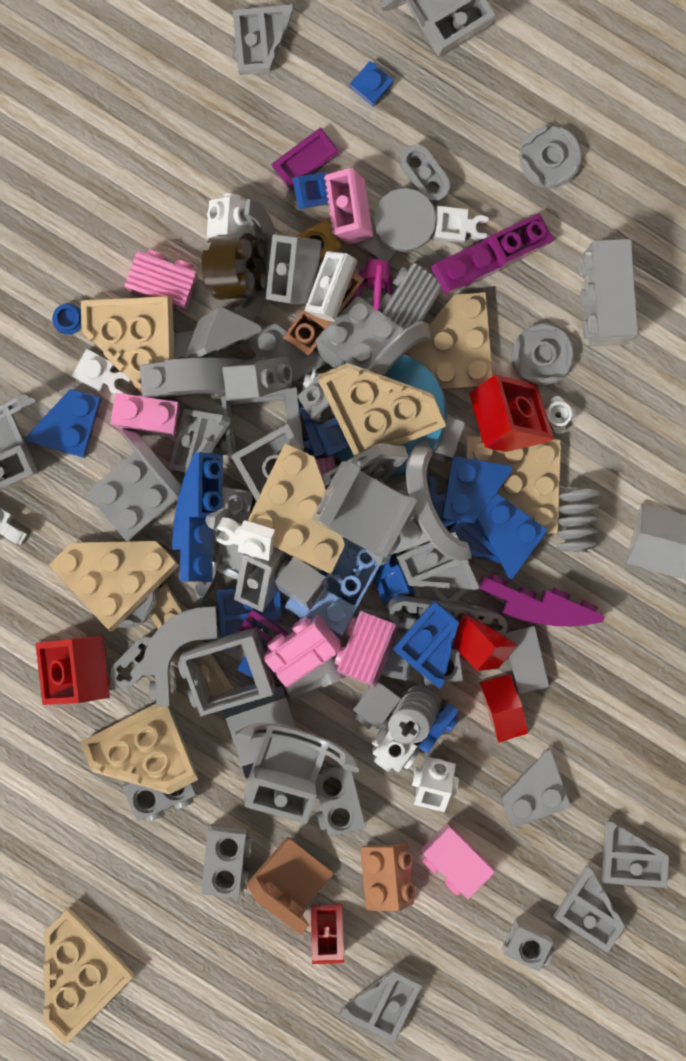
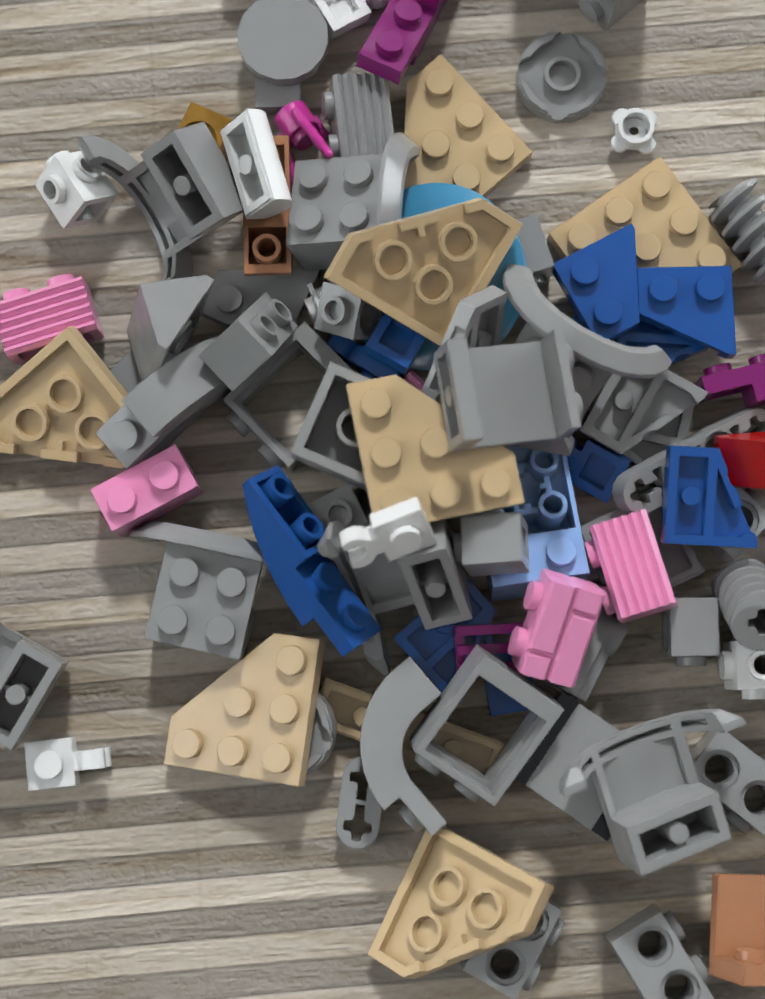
camera: 30 degrees left, 5 degrees down
(67, 424) = (60, 576): blue wing -> none
(72, 670) = (291, 872): red slope -> none
(97, 372) = (50, 487): white plate -> none
(196, 433) = (223, 466): light grey wing -> none
(235, 266) = (123, 233): dark brown brick -> none
(305, 157) = (113, 59): magenta tile -> none
(310, 190) = (148, 86): blue plate -> none
(348, 206) = (205, 69): bright pink brick -> none
(510, 414) = (580, 167): red slope -> none

